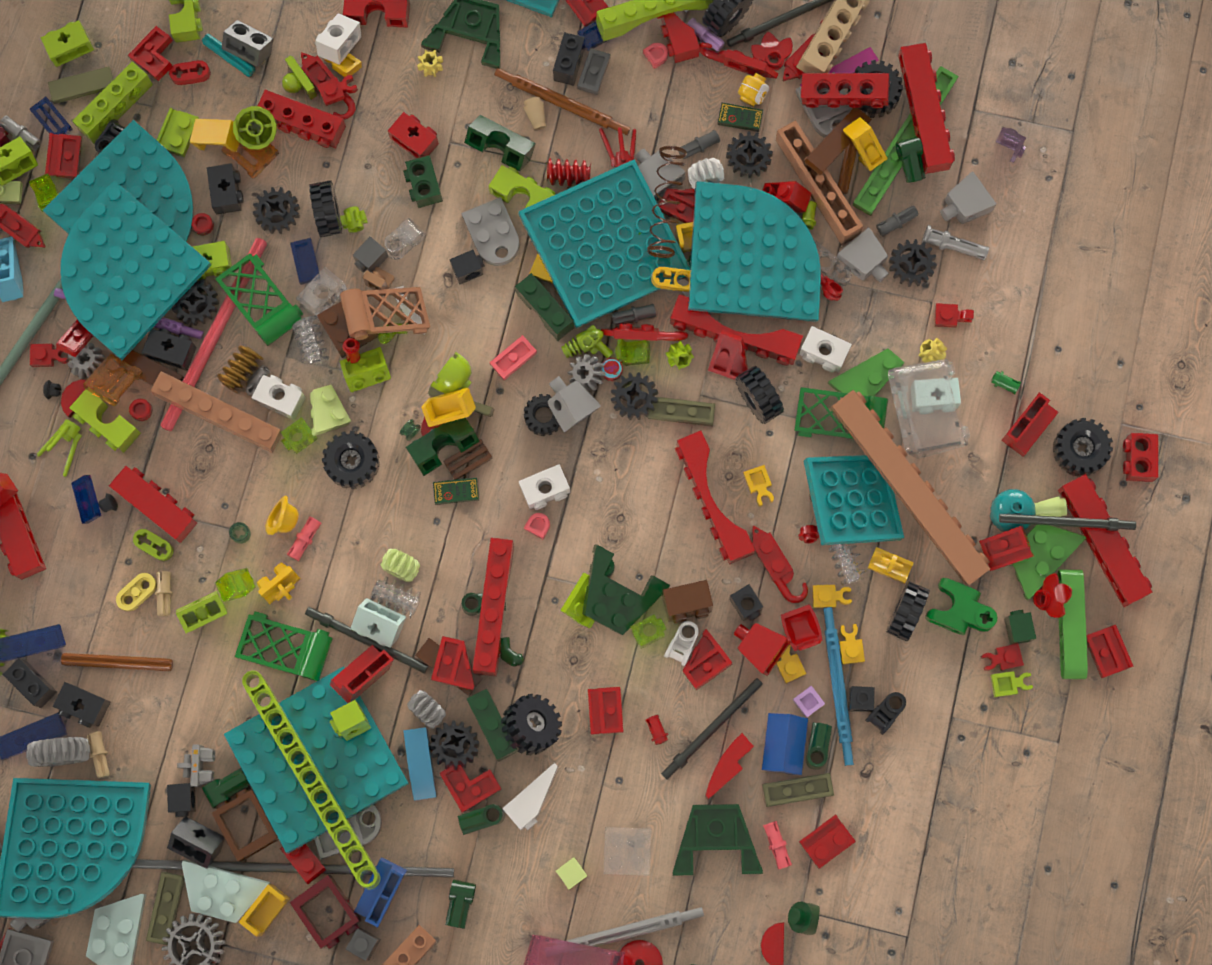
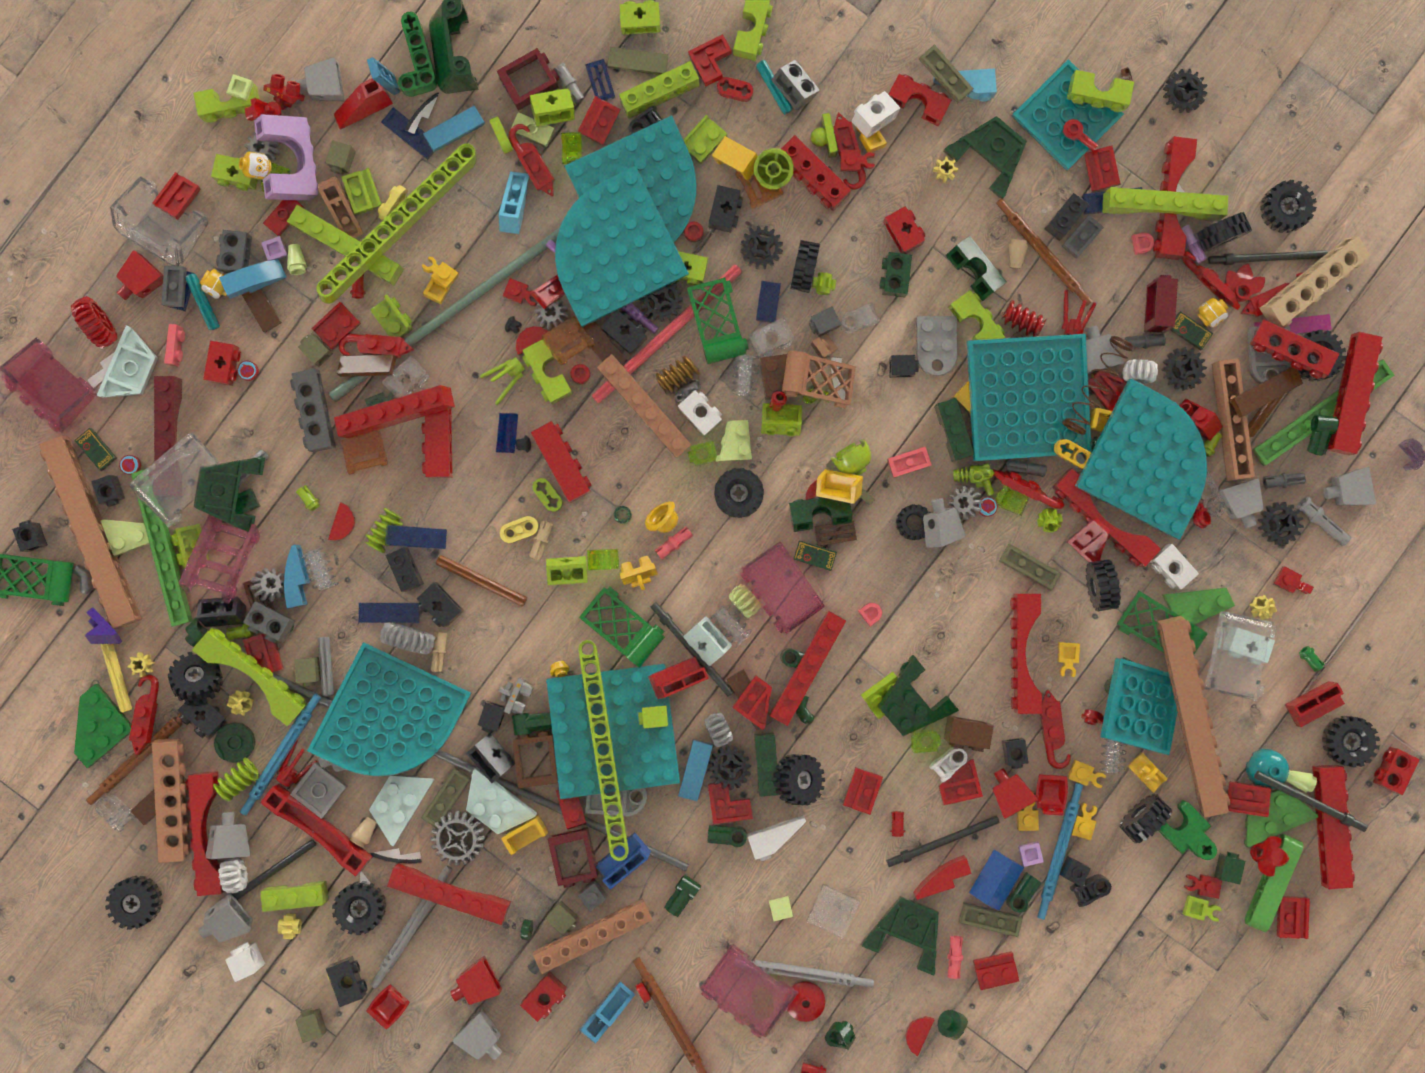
camera: 20 degrees right, 10 degrees up
(233, 718) = (559, 669): none -> yellow plate
(410, 429) = (798, 488): clear green bush -> none
(434, 536) = (782, 588): none -> clear pink windscreen
(554, 477) = (901, 580): white brick -> none
(625, 393) = (989, 533): black gear -> none
(697, 102) = (1161, 304): none -> dark red window
(866, 143) = (1290, 404): yellow panel -> none

